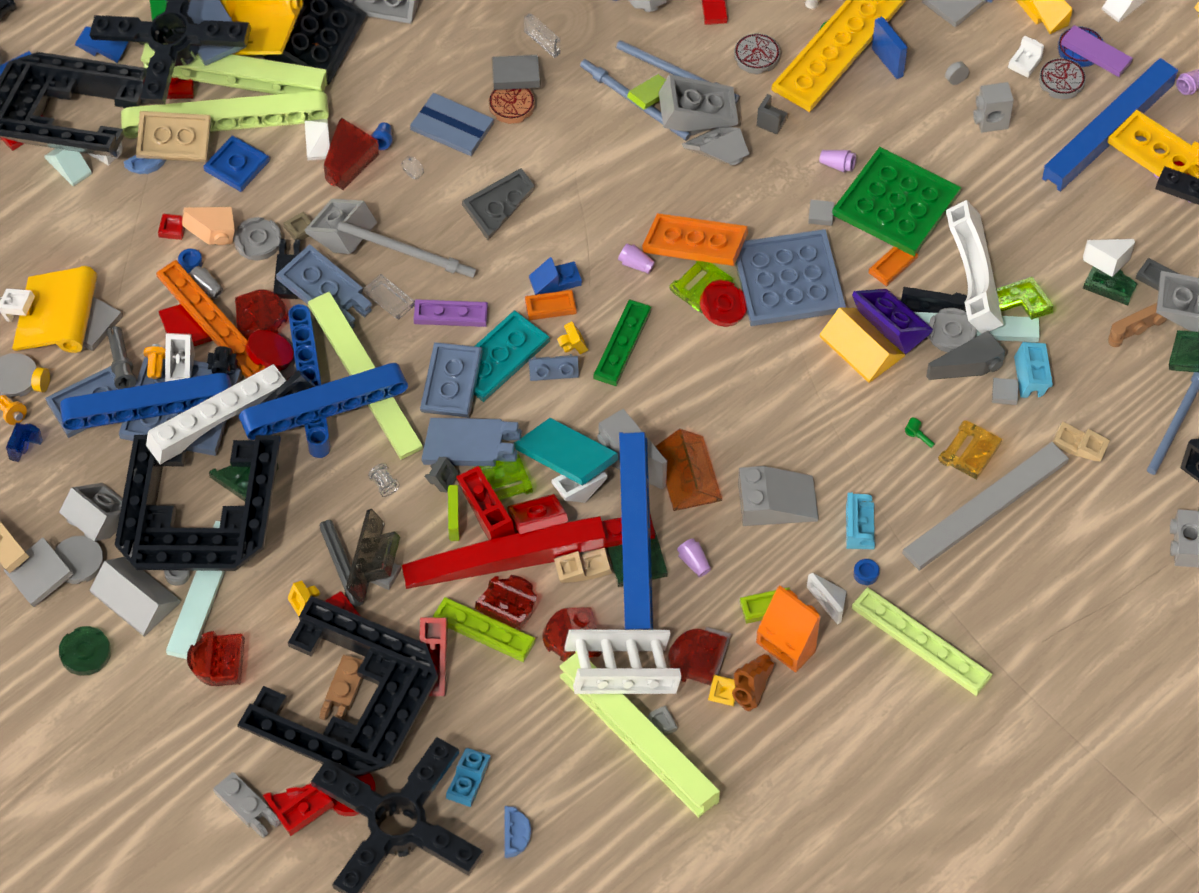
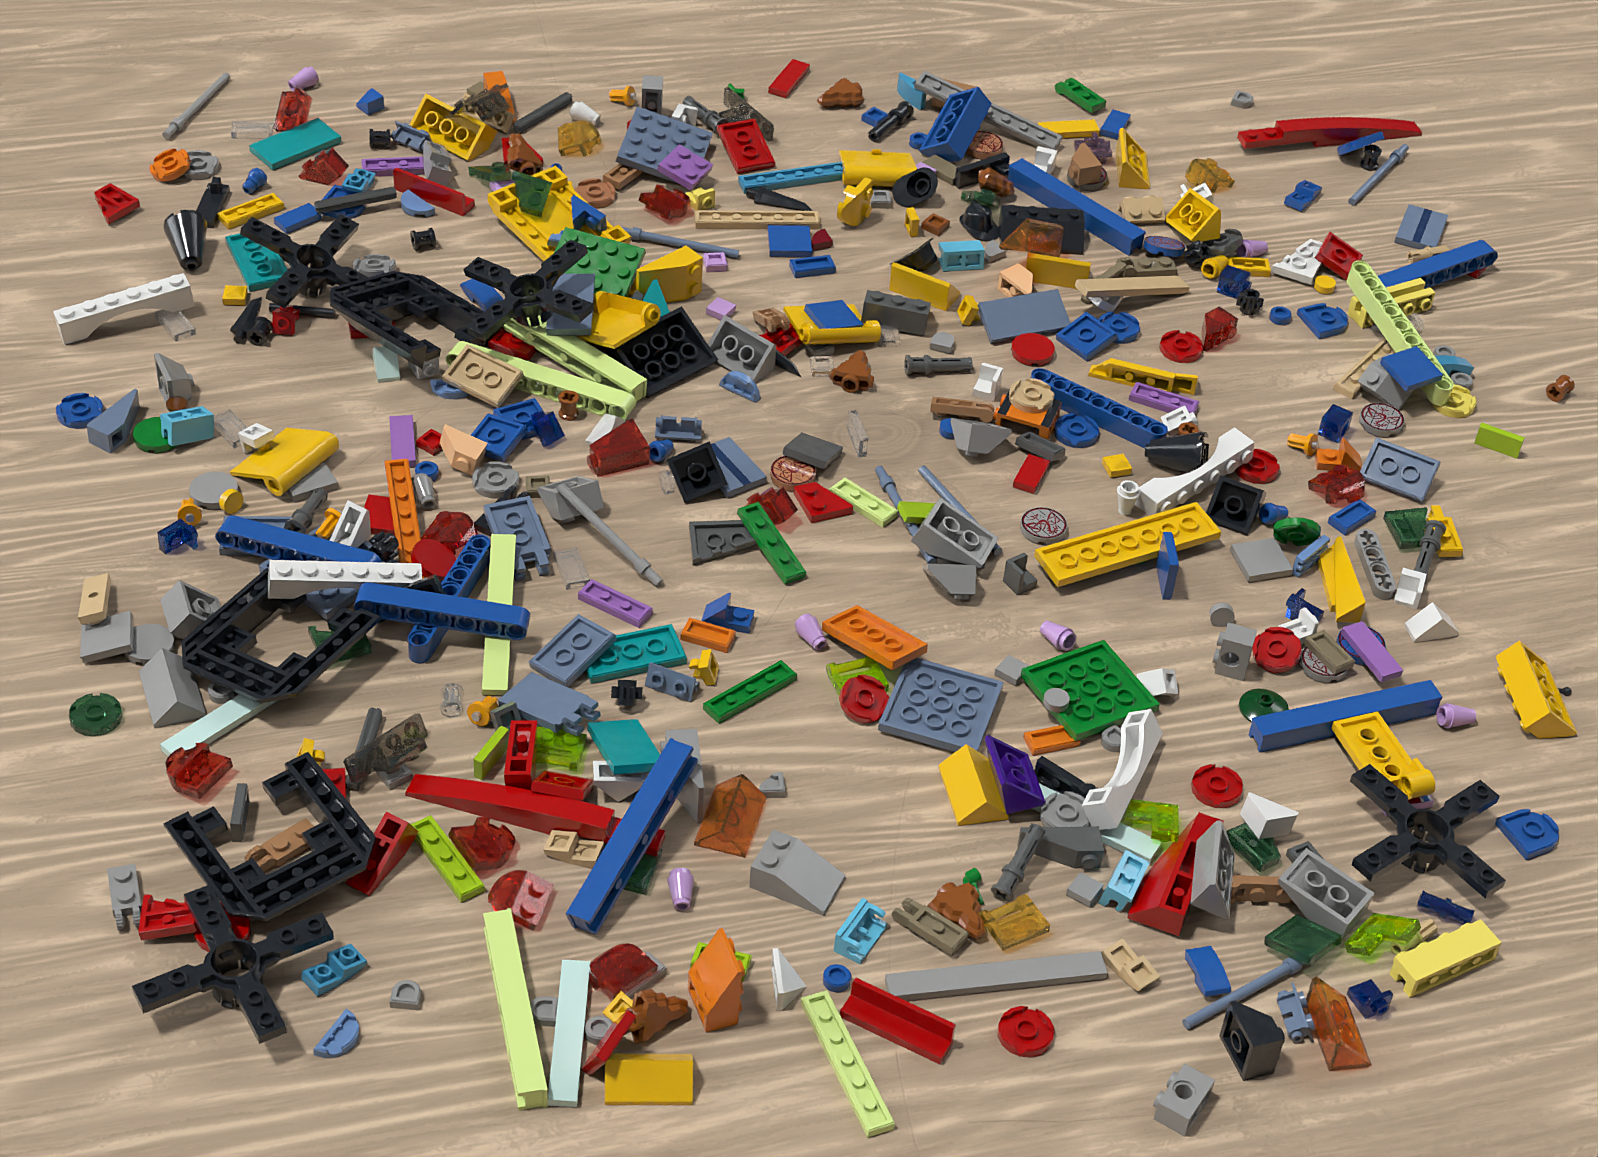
camera: 25 degrees right, 15 degrees down
(145, 239) = (402, 438): none -> medium lavender tile
(230, 190) = (500, 435): none -> blue tile
(267, 162) = (546, 427): none -> clear blue bracket
(269, 129) = (568, 405): none -> dark orange bush
(285, 678) = (240, 812): none -> dark grey tile
(383, 107) = (688, 429): none -> sand blue hinge
(405, 31) = (741, 385): none -> medium blue tile
(416, 478) = (479, 711): none -> light orange piece
(433, 144) = (696, 471): none -> black slope
(519, 150) = (775, 503): none -> clear red slope
(526, 397) = (626, 692): none -> black gear
(541, 768) = (405, 995): none -> light grey tile
(545, 186) = (771, 543): none -> green tile
(555, 122) = (821, 503): none -> red wing
(591, 103) = (865, 502): none -> yellowish green tile
(622, 680) = (533, 952): white fence -> none
(700, 741) = (569, 1034): none -> light aqua tile
(702, 422) = (773, 786): none -> light grey tile
(714, 716) = (596, 1028): none -> light grey tile
(740, 726) = (608, 1043): none -> red tile
(782, 736) = (649, 1079): none -> yellow slope
(881, 227) = (1056, 700): none -> light grey tile
(909, 487) = (930, 925): none -> dark tan hinge
(923, 460) = (961, 907): none -> dark orange rock
(939, 585) = (898, 1021): none -> red panel
(942, 238) = (1111, 739): none -> light grey tile
(946, 407) = (1014, 871): none -> dark grey pin
(947, 166) = (1159, 681): none -> white panel
(1013, 34) = (1296, 602): none -> clear blue bracket
(1025, 84) = (1277, 649): none -> red tile
(1034, 152) = (1261, 702): none -> dark green dish
(1037, 541) = (1025, 1031): none -> red tile
(1048, 241) = (1217, 786): none -> red tile
(1063, 68) = (1329, 652): none -> dark tan tile
(1071, 342) = (1167, 887): none -> red wedge
(1103, 330) = (1213, 872): none -> light grey slope
(1142, 415) = (1208, 970): none -> blue slope

